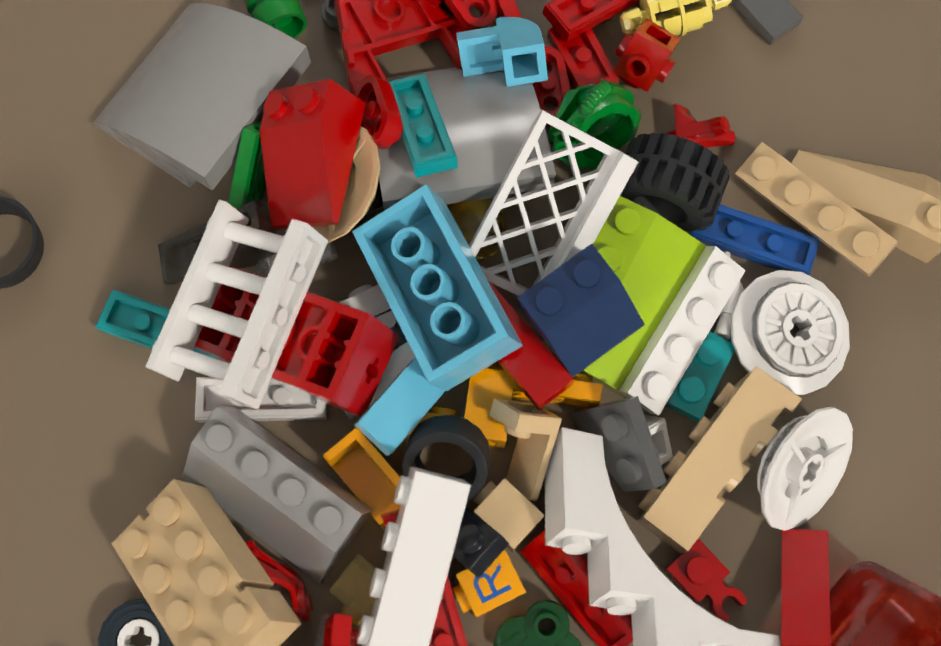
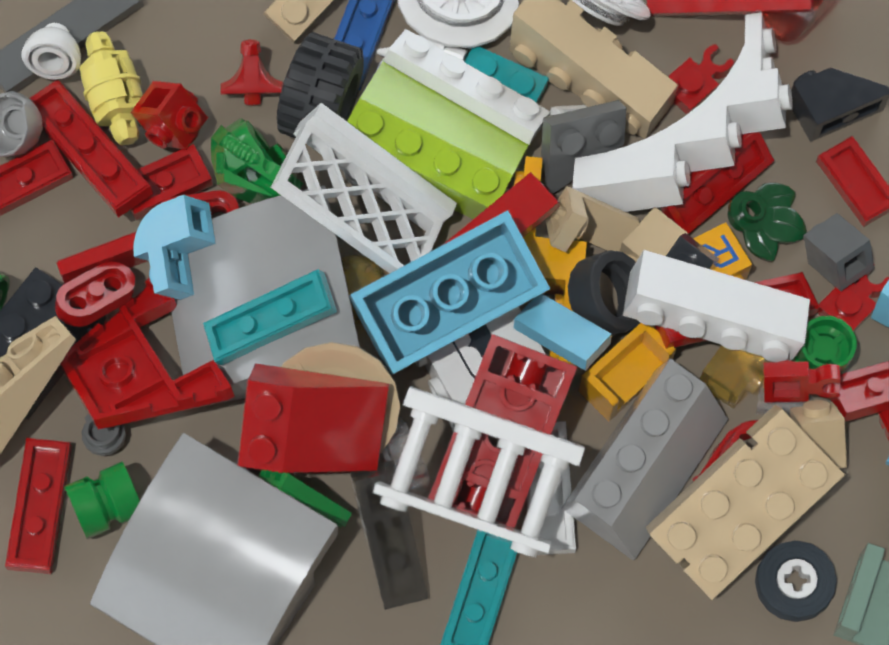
camera: 95 degrees left, 5 degrees down
(381, 111) = (256, 349): red plate -> none
(581, 310) = (464, 164): dark blue slope -> none

